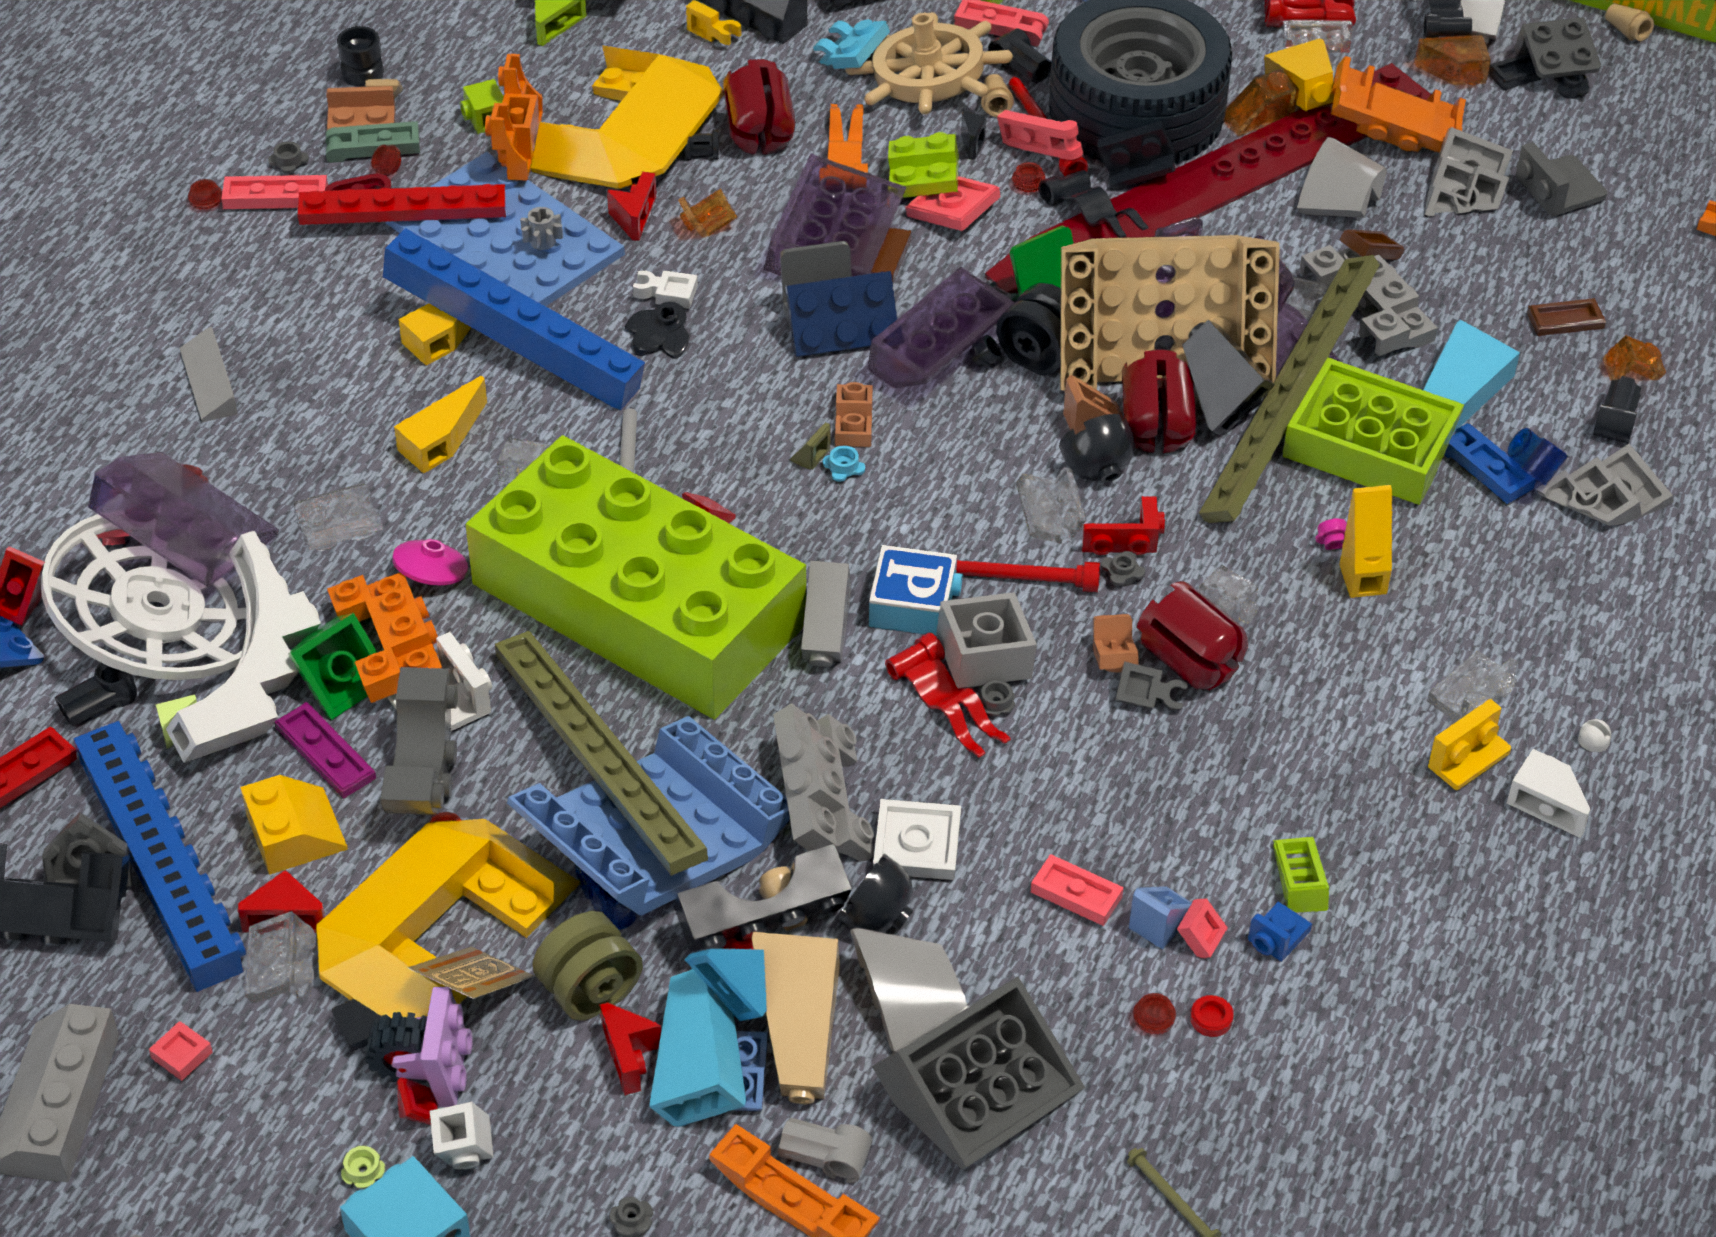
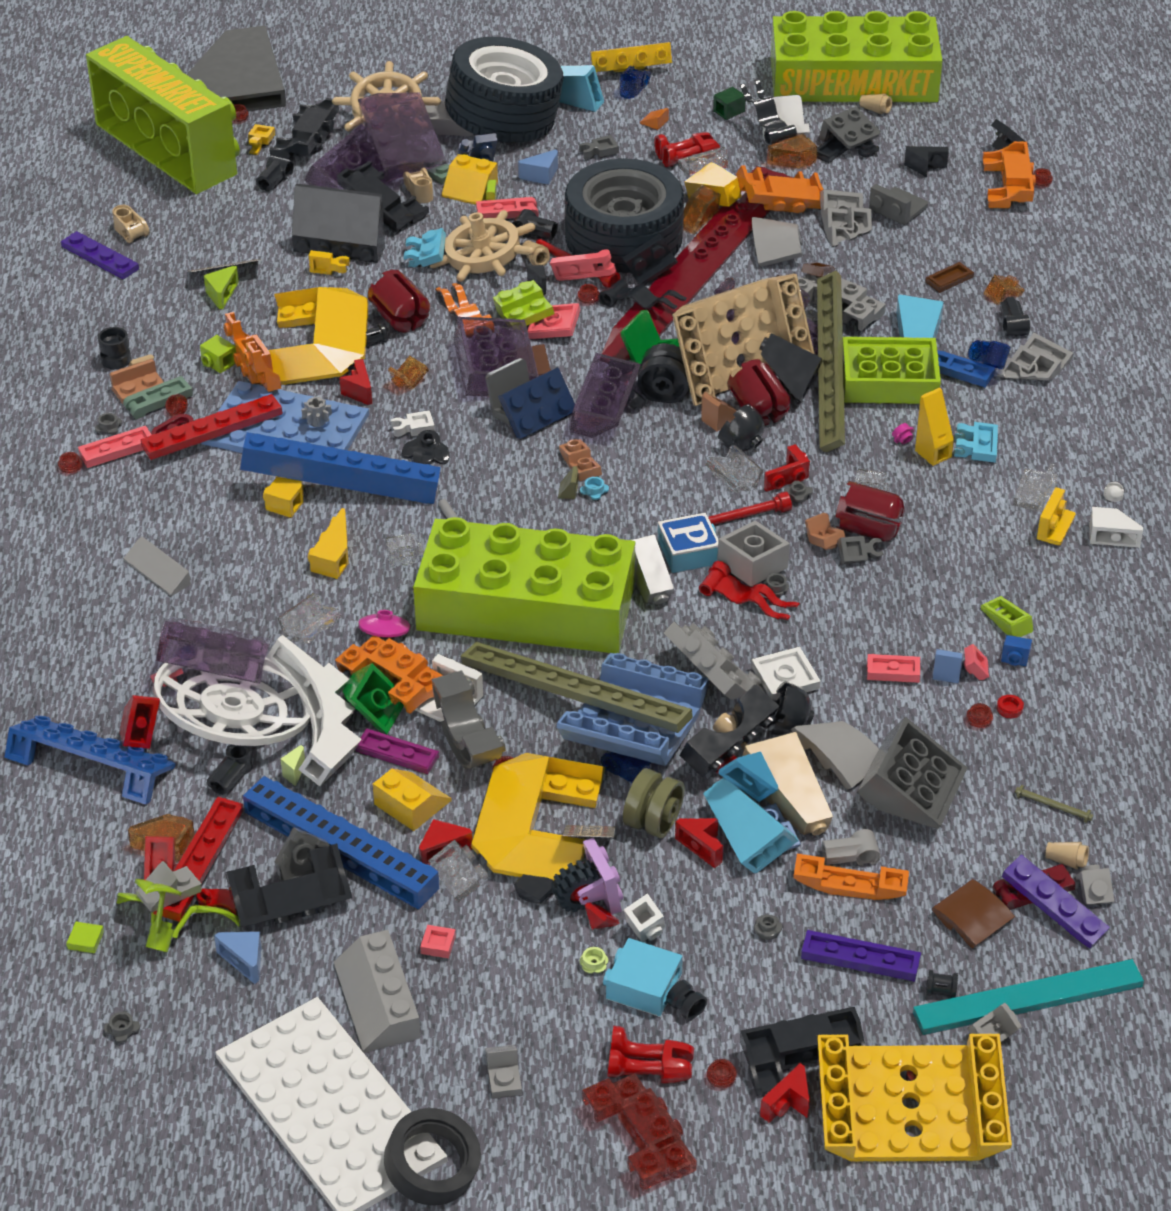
camera: 25 degrees left, 5 degrees down
(1444, 590) = (983, 443): none -> medium azure plate
(1642, 123) = (924, 157): none -> black slope

